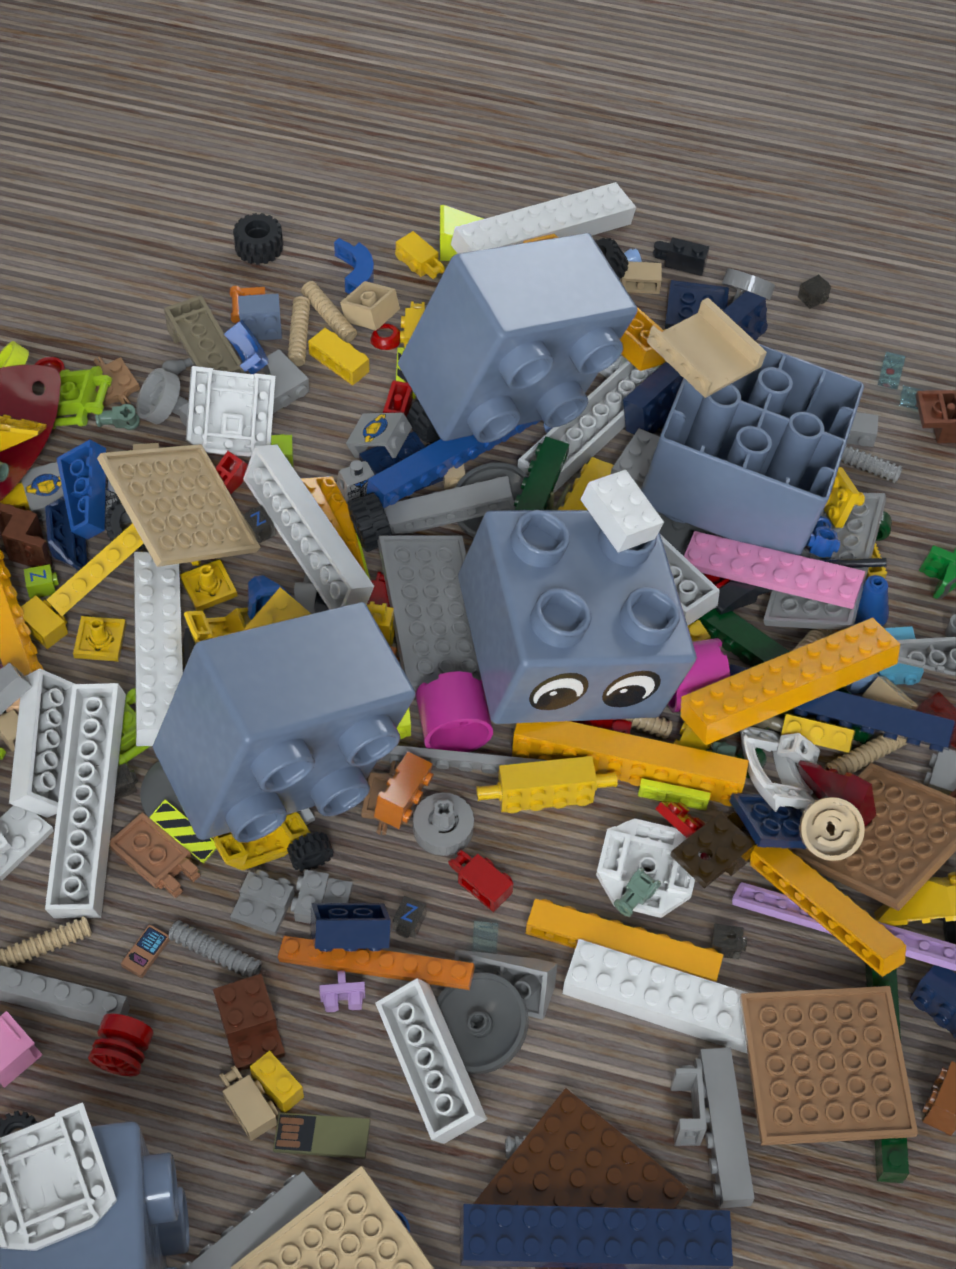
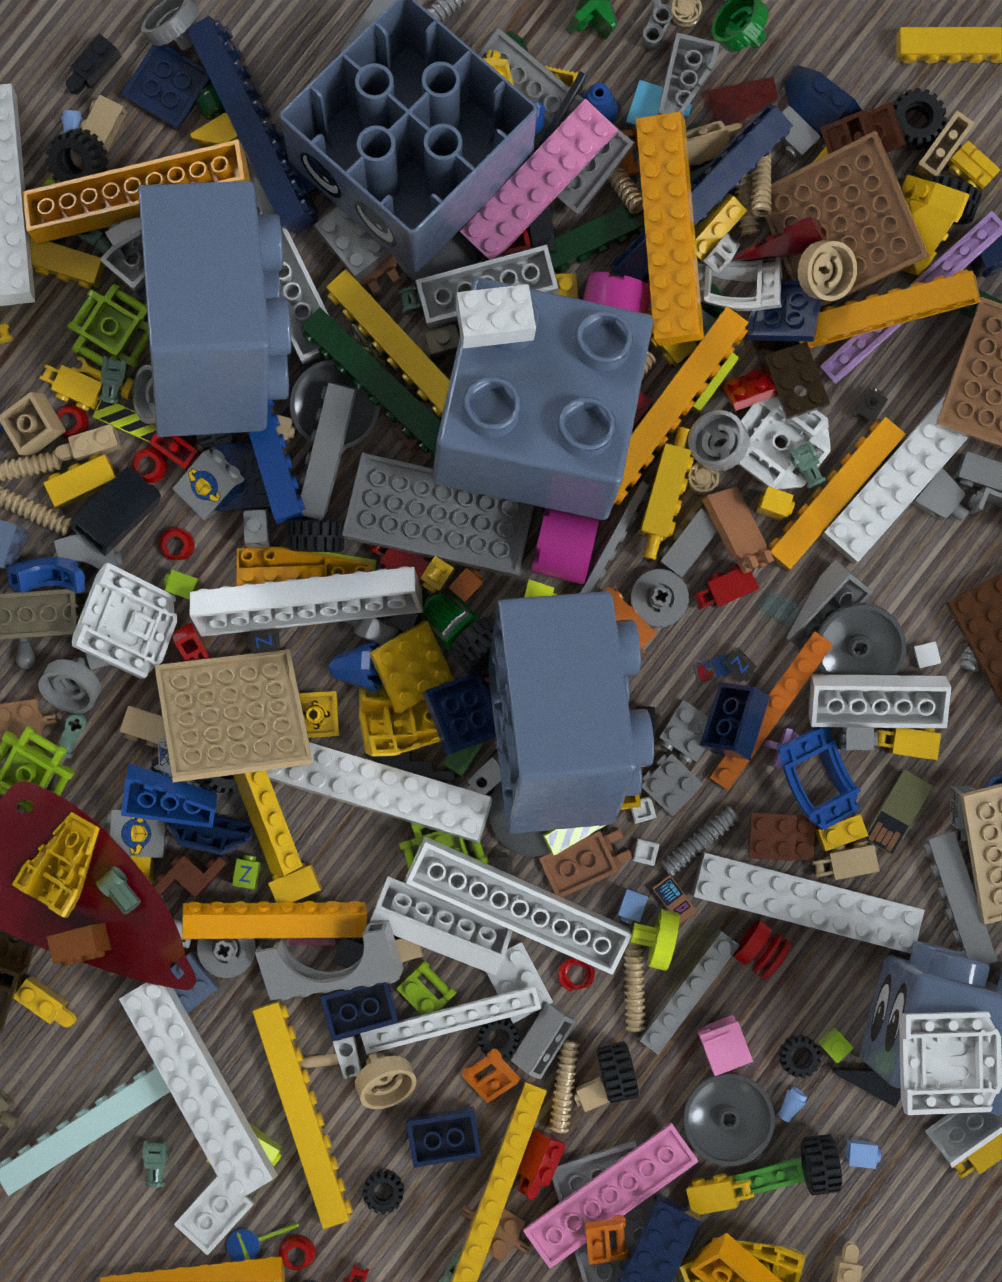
camera: 70 degrees left, 30 degrees up
(30, 878) = (567, 983): none -> red piece
(97, 939) = (659, 939): none -> neon yellow piece
(101, 633) = (319, 842): yellow plate -> none
(124, 911) = (632, 906): none -> light blue brick
(184, 907) = (645, 852): none -> white tile
(189, 1077) = (807, 902): none -> white brick
(226, 888) = (645, 812): none -> white tile
(317, 446) = (187, 539): none -> red piece
(324, 380) = (116, 510): none -> black brick
(356, 1010) = (804, 747): none -> blue wedge
(374, 406) = (160, 460): none -> red piece
(381, 356) = (92, 442): none -> tan brick
(381, 1054) = (857, 738): none -> light grey brick
(391, 897) = (710, 669): none -> sticker
(402, 1118) = (911, 742): none -> yellow brick
(502, 1100) = (927, 655): none -> white tile
(509, 830) = (688, 543): none -> light grey brick
(544, 860) = (738, 529): none -> nougat tile
(578, 820) = (701, 479): none -> tan wheel
(584, 884) = (775, 504): none -> yellow brick
(619, 806) = (726, 448): none -> light grey piece
(671, 1045) = (941, 498): none -> light grey torso
(708, 349) = (317, 133): tan panel -> none
(887, 757) = (761, 187): none -> tan piece

